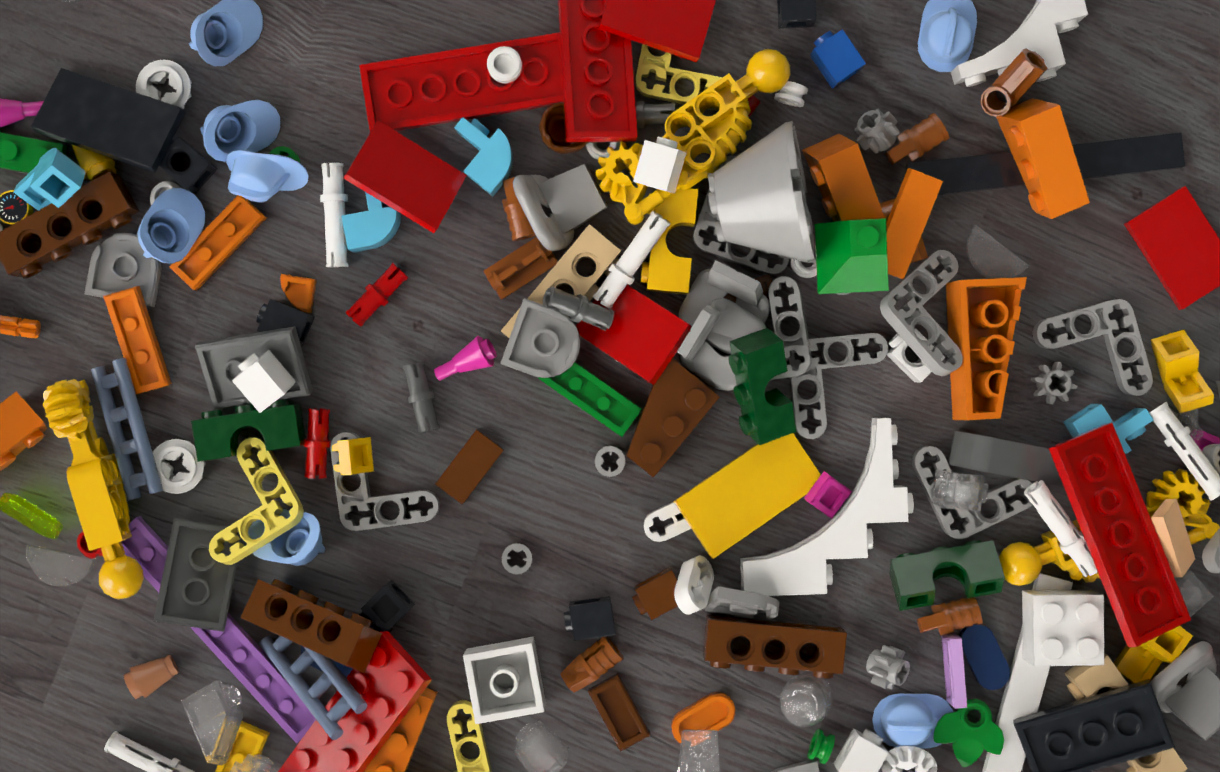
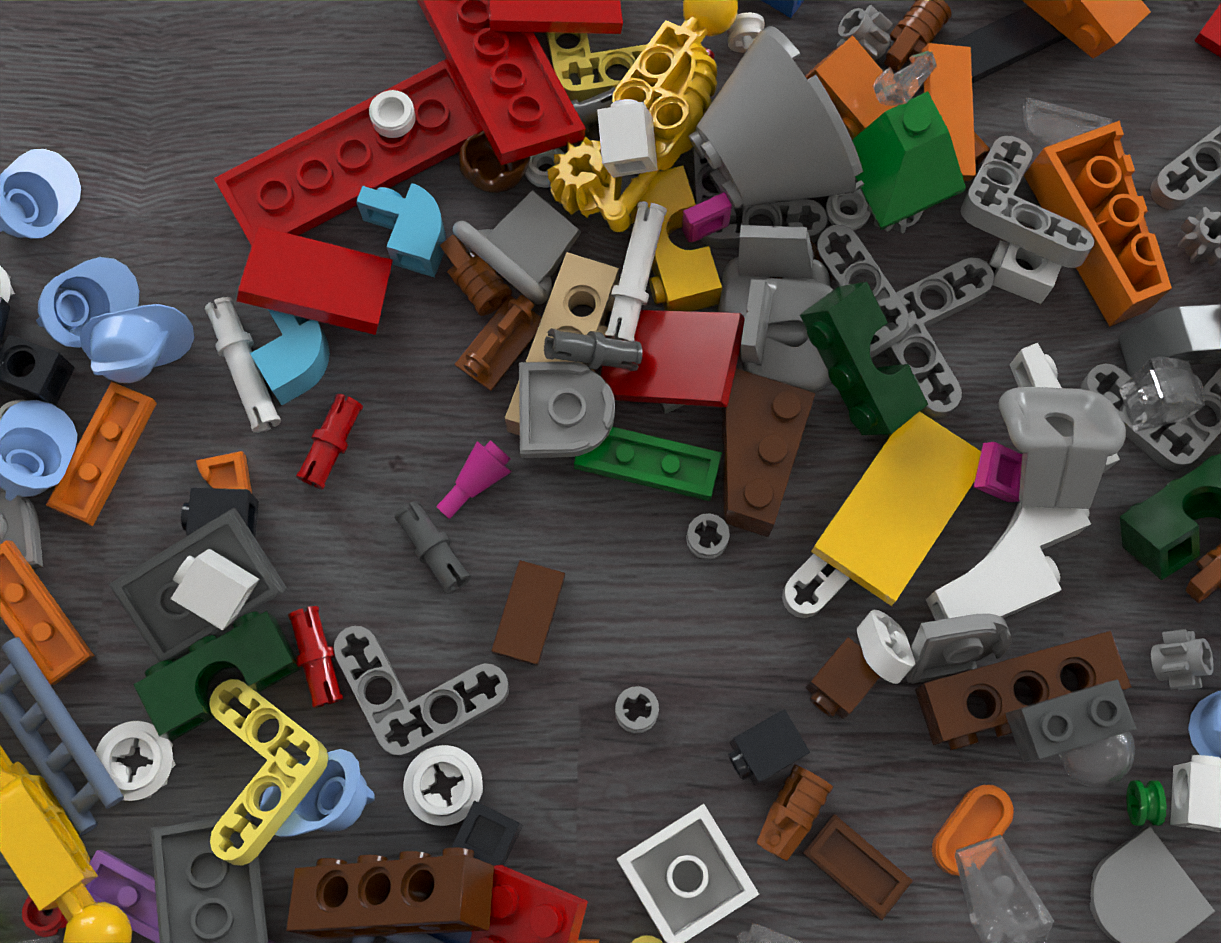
camera: 20 degrees left, 15 degrees down
(354, 456) = (370, 648): yellow tile -> none
(360, 570) = (422, 775): none -> white gear
(698, 236) = (706, 217): none -> dark pink tile
(788, 683) = (1070, 721): none -> dark grey brick
(857, 516) = (1055, 467): none -> light grey piece
(873, 197) = (900, 87): none -> clear tile

